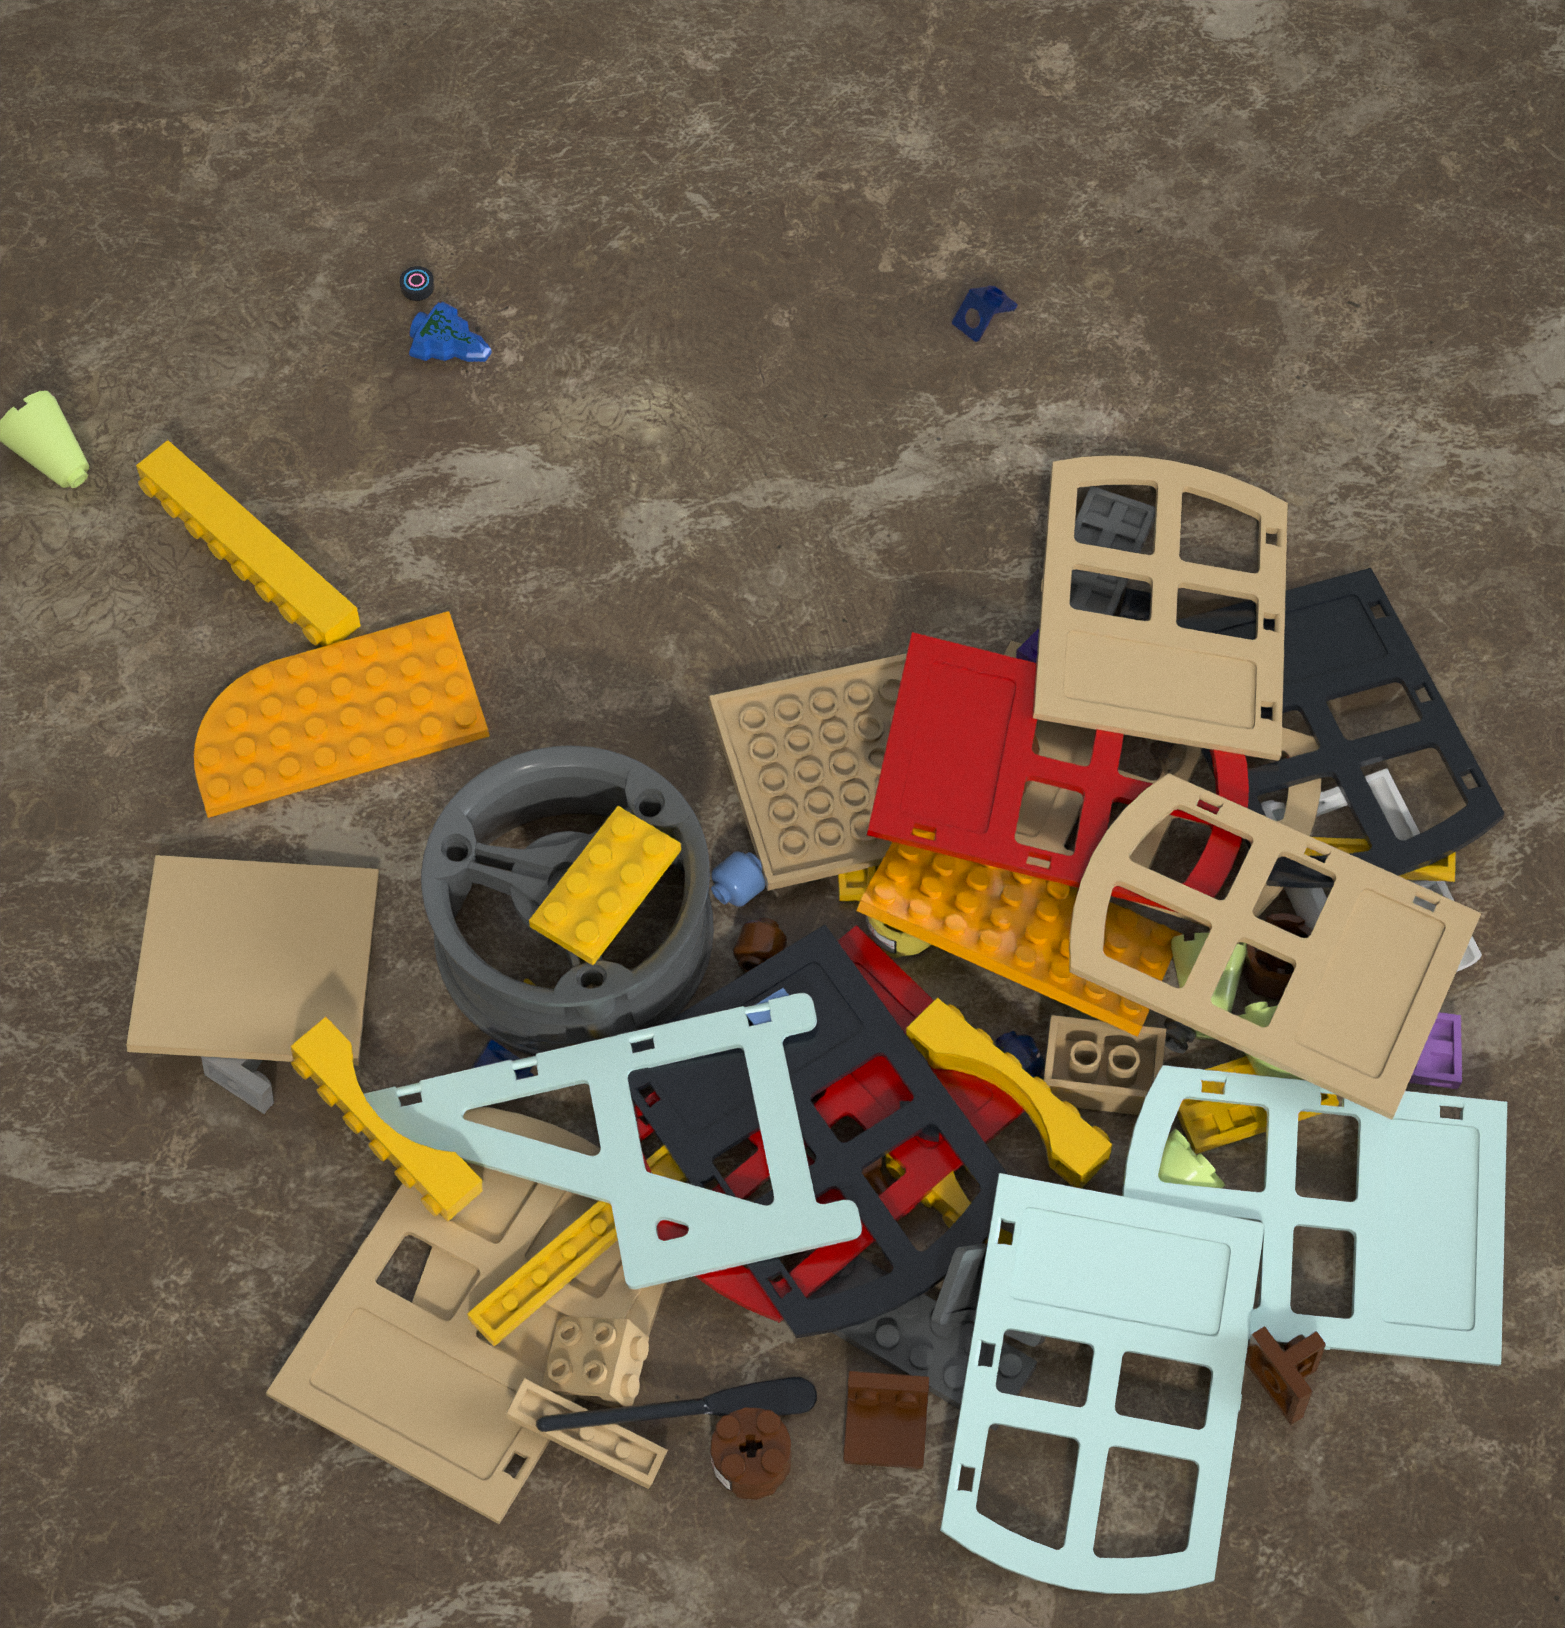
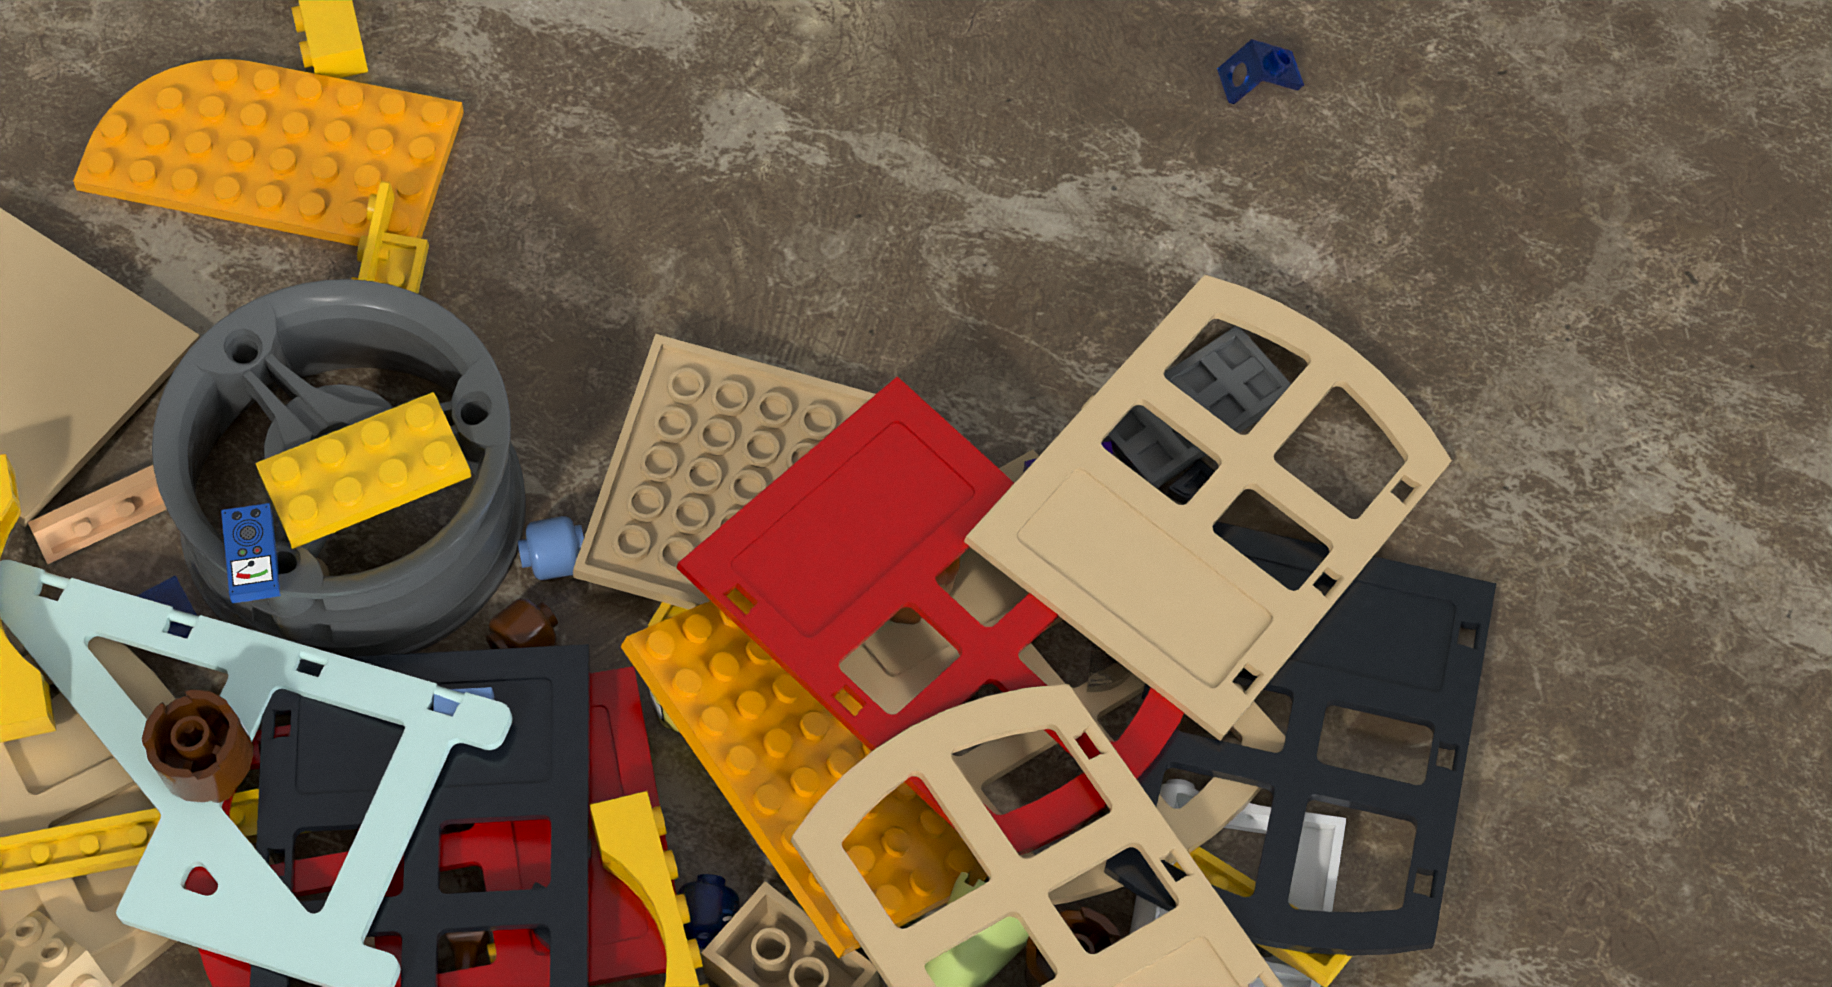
camera: 30 degrees right, 0 degrees up
(402, 1028) = (97, 515): none -> light nougat plate
(481, 743) = (389, 256): none -> yellow bracket
(572, 981) = (250, 553): none -> blue tile
(616, 1158) = (198, 747): none -> reddish brown brick

